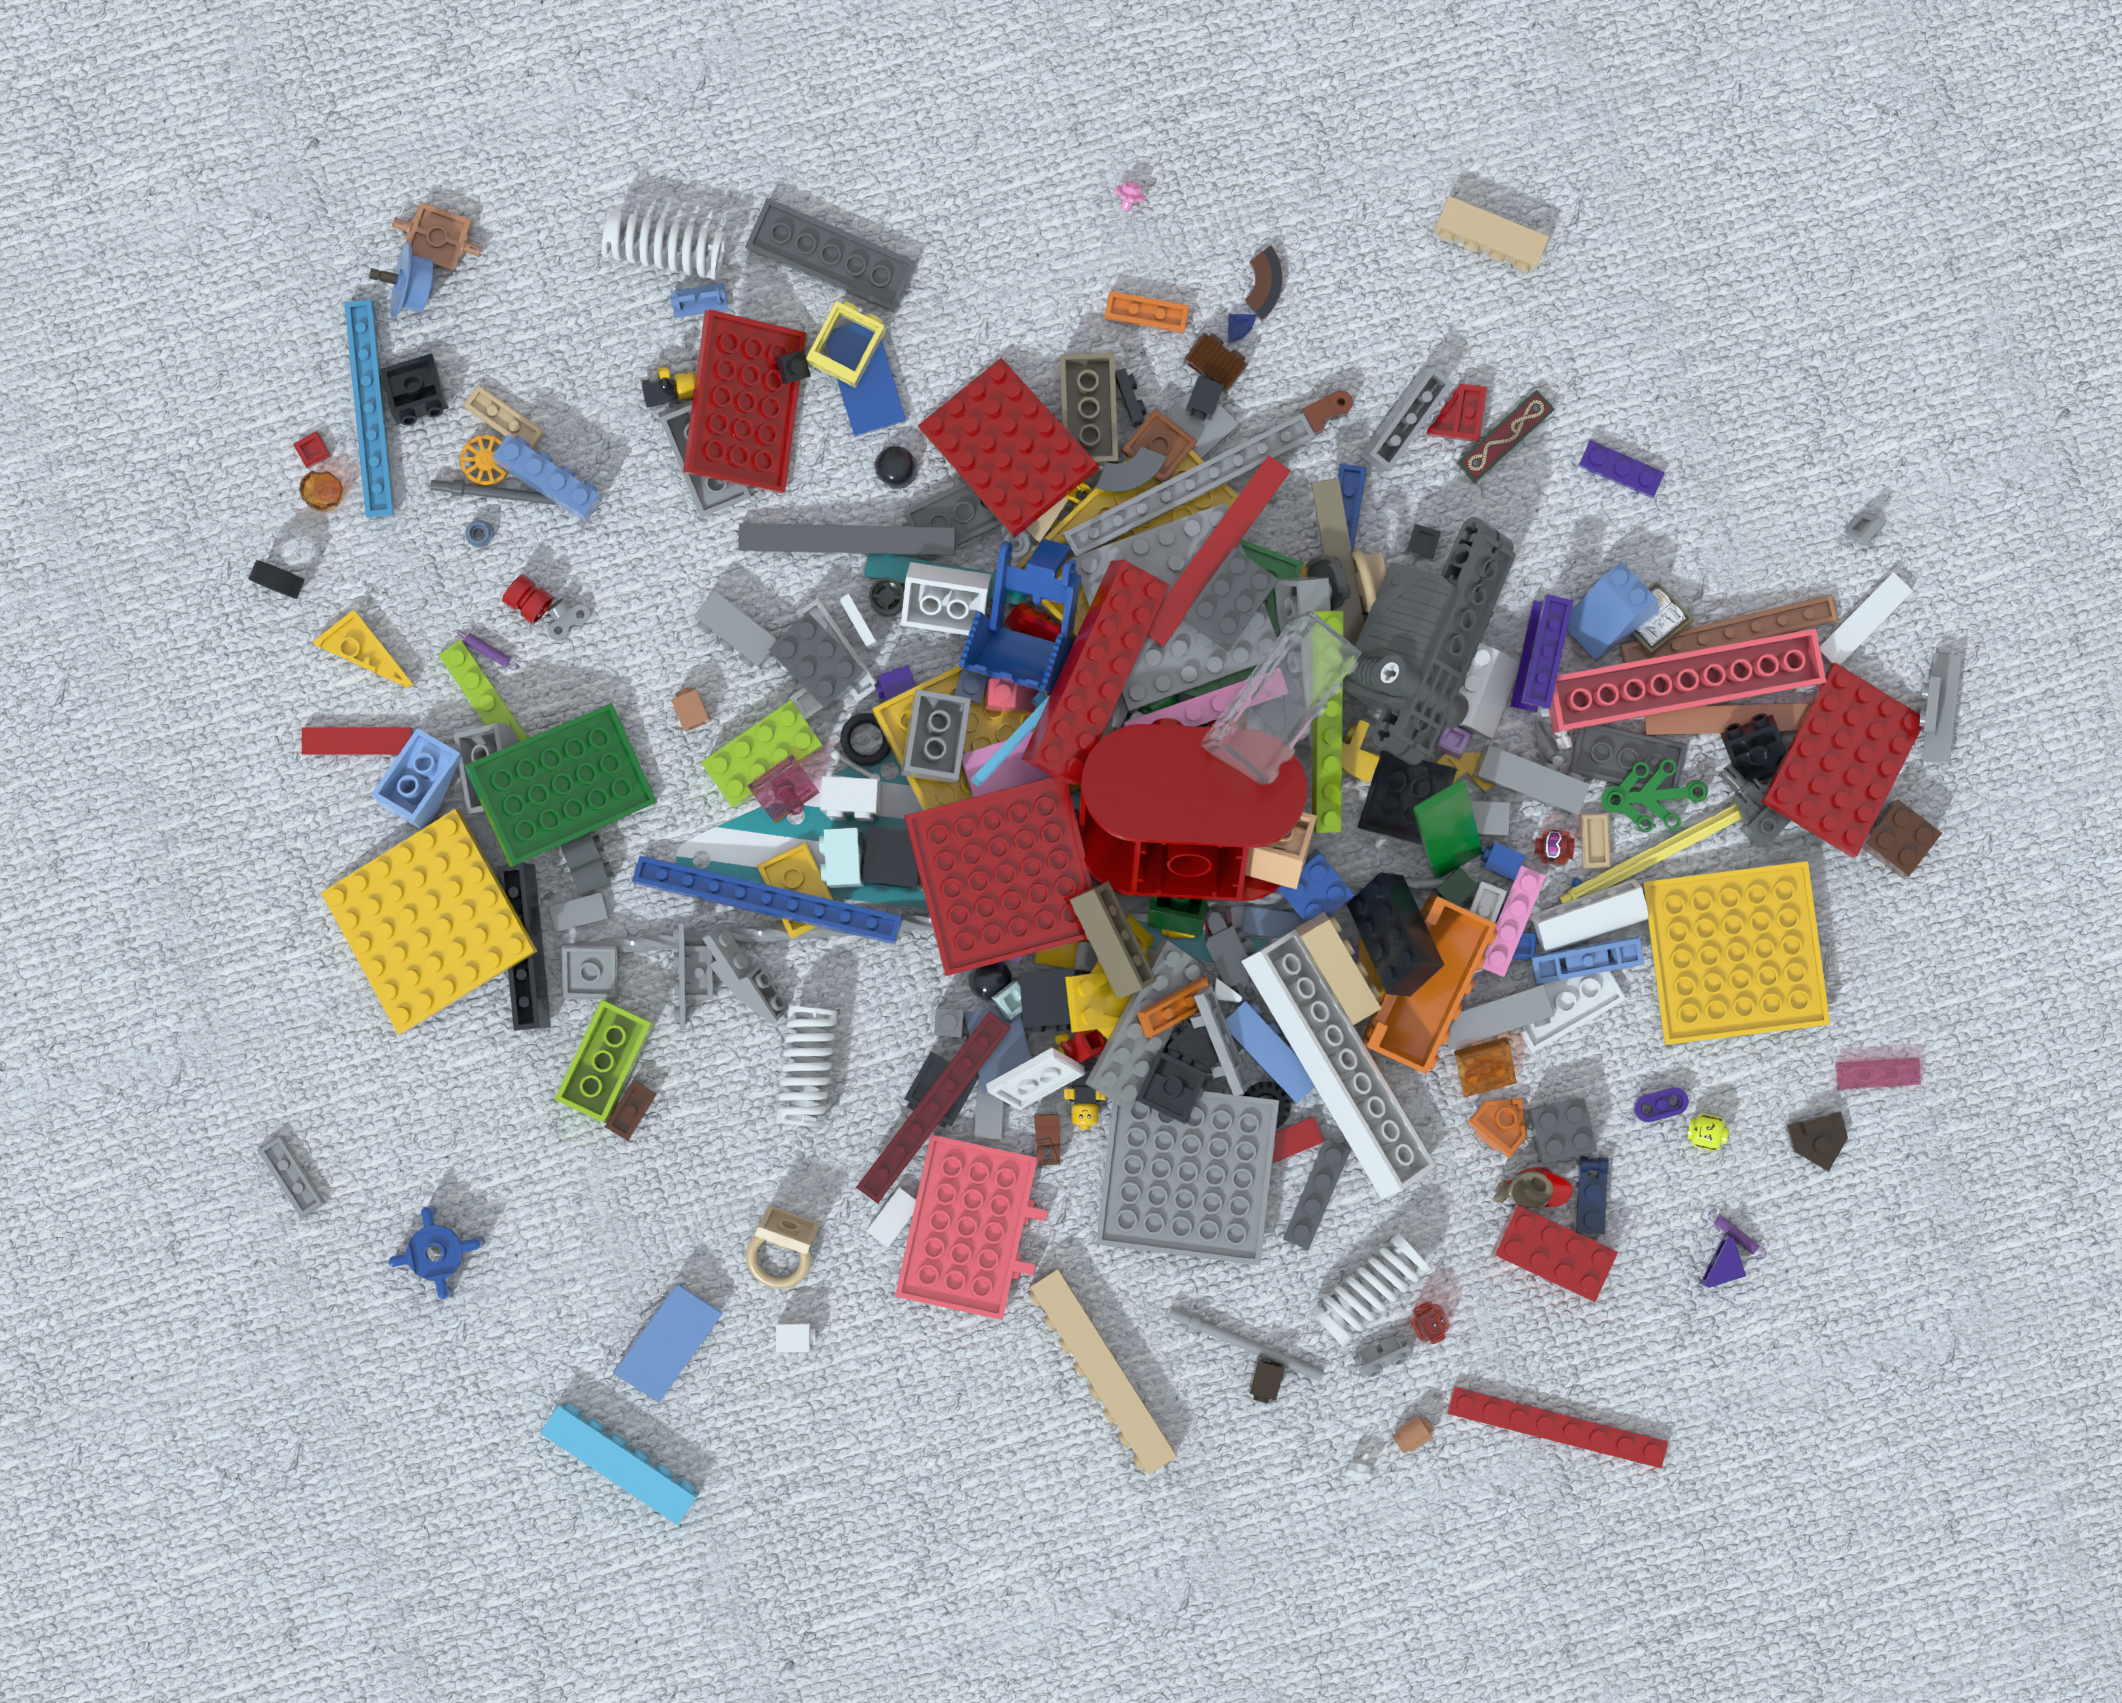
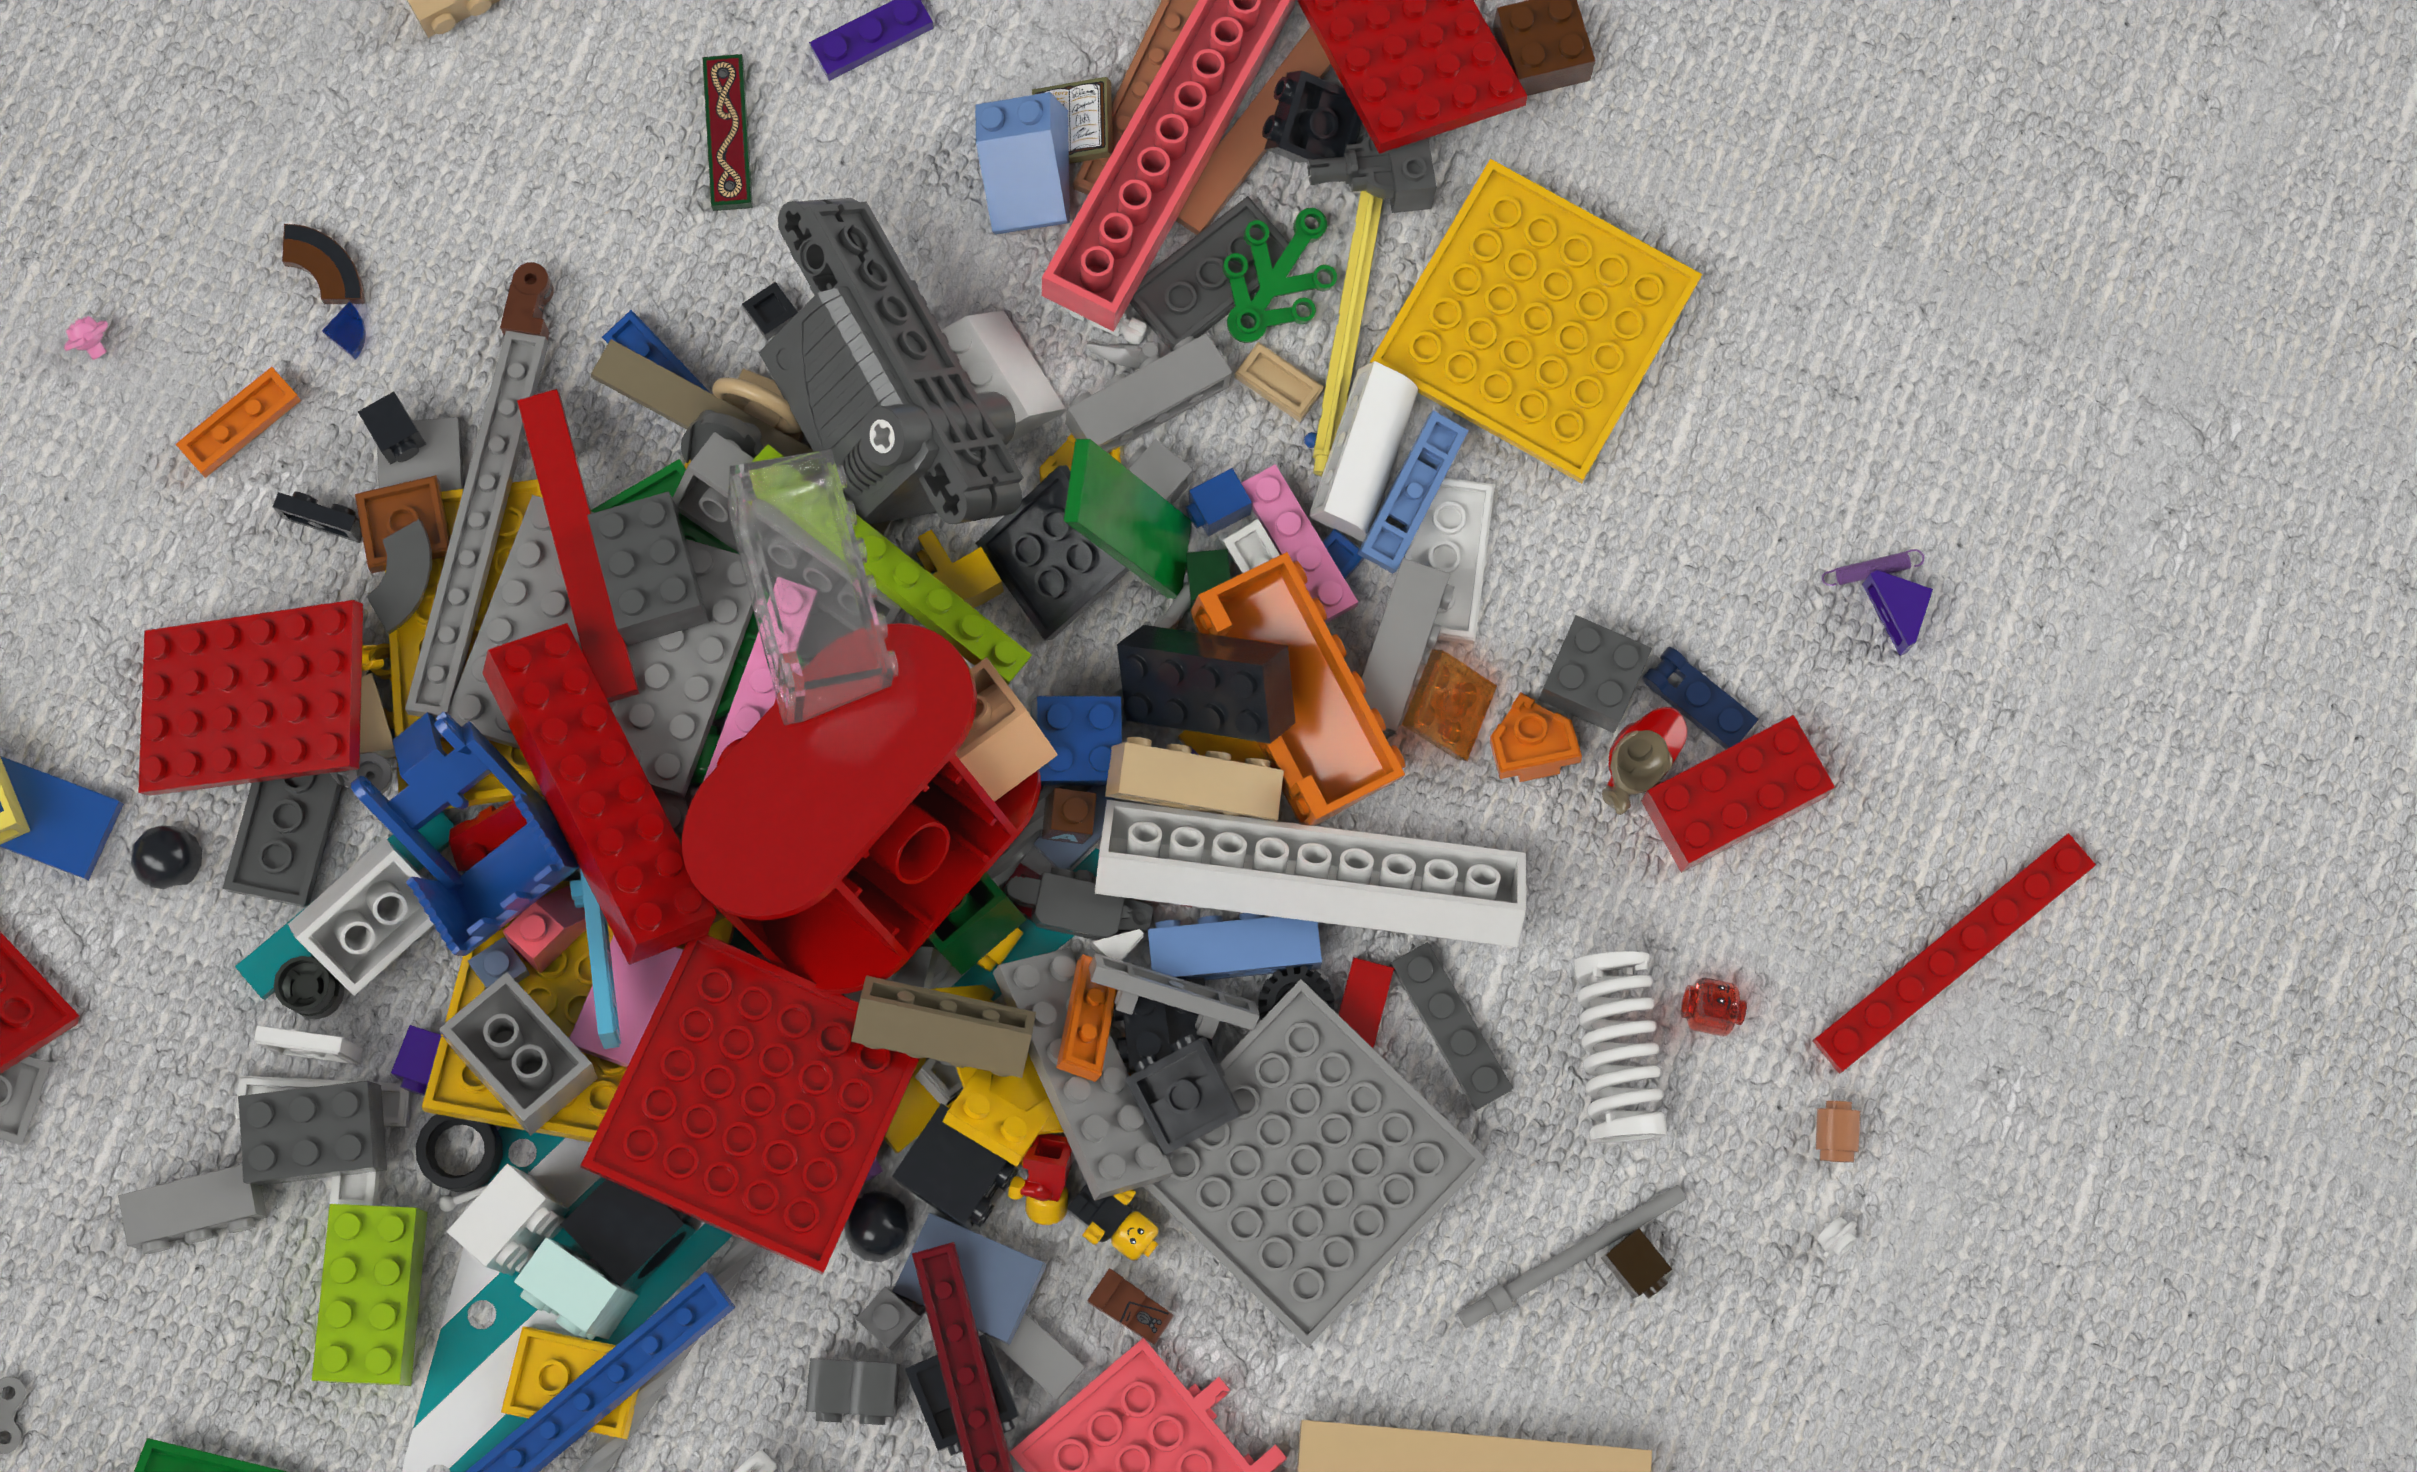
camera: 55 degrees left, 10 degrees down
(690, 709) = (240, 1344): nougat brick -> none
(783, 789) = (432, 1301): clear pink tile -> none
(847, 539) = (197, 984): dark grey tile -> none
(901, 1032) = (852, 1388): none -> dark grey brick
(1009, 1000) = (920, 1219): light aqua plate -> none
(1035, 1078) = (1041, 1260): white tile -> none
(1090, 403) = (281, 560): dark tan brick -> none
(1215, 361) = (354, 385): reddish brown brick -> none
(1272, 915) = (1069, 816): none -> reddish brown brick
(1374, 1362) = (1712, 1113): light grey hinge -> none
(1406, 419) = (612, 221): light grey brick -> none
(1453, 742) = (1032, 452): lavender tile -> none
(1462, 415) = (661, 160): red wing -> none
(1541, 653) = (1008, 269): dark purple fence -> none
(1555, 847) = (1250, 430): clear red head -> none
(1660, 1104) = (1651, 540): dark purple plate -> none
(1708, 1132) = (1725, 507): neon yellow head -> none
(1819, 1138) = (1828, 391): dark brown plate -> none
(1878, 1073) = (1799, 270): clear pink tile -> none

